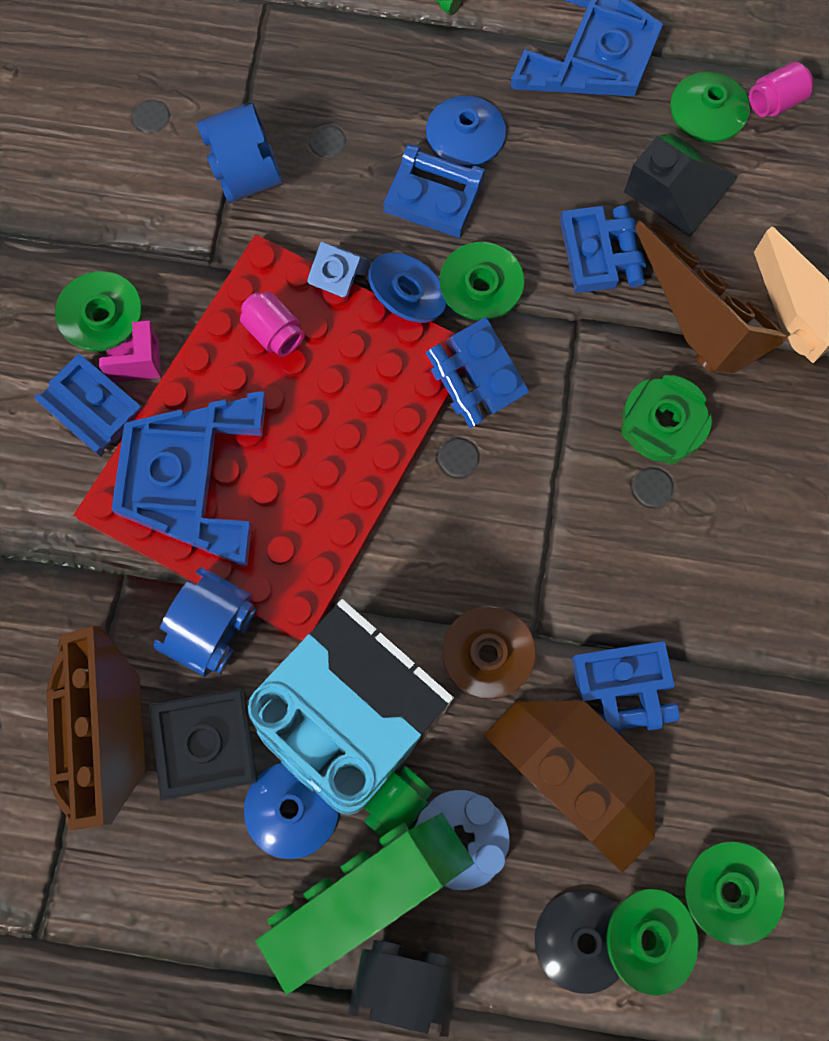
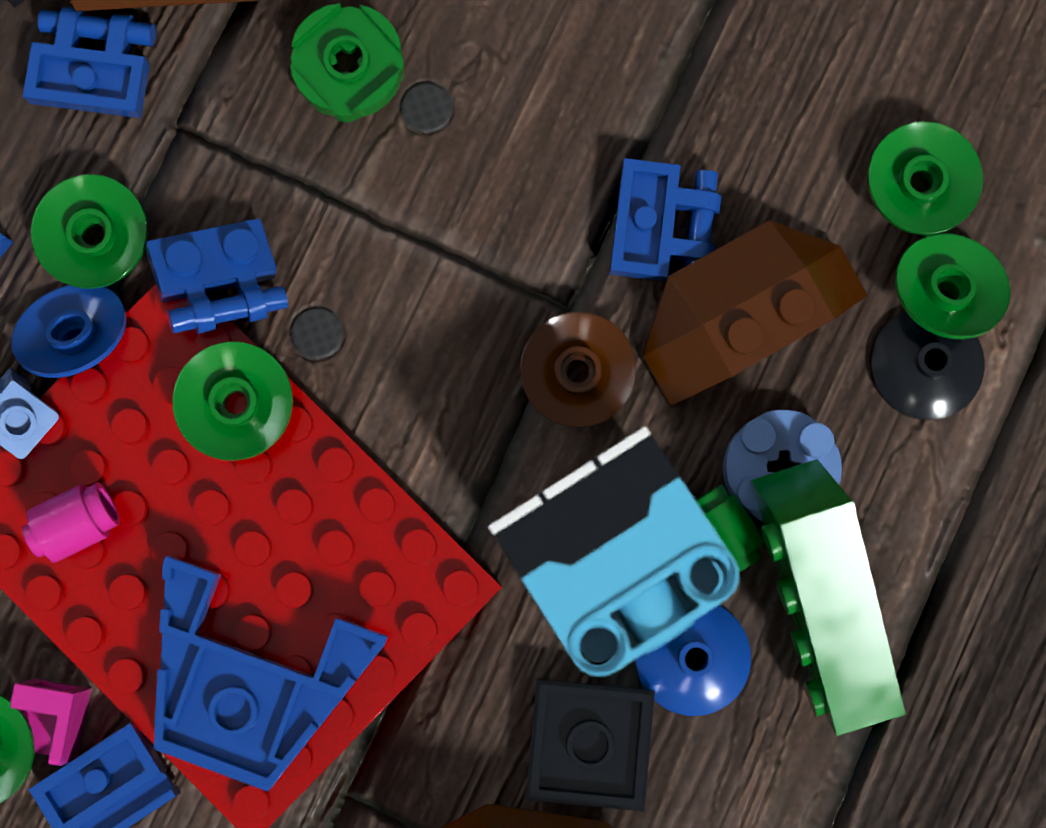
camera: 75 degrees left, 10 degrees up
(205, 622) = (447, 706): blue brick -> none
(388, 386) = (203, 396): none -> green dish
(405, 990) = (935, 577): black brick -> none

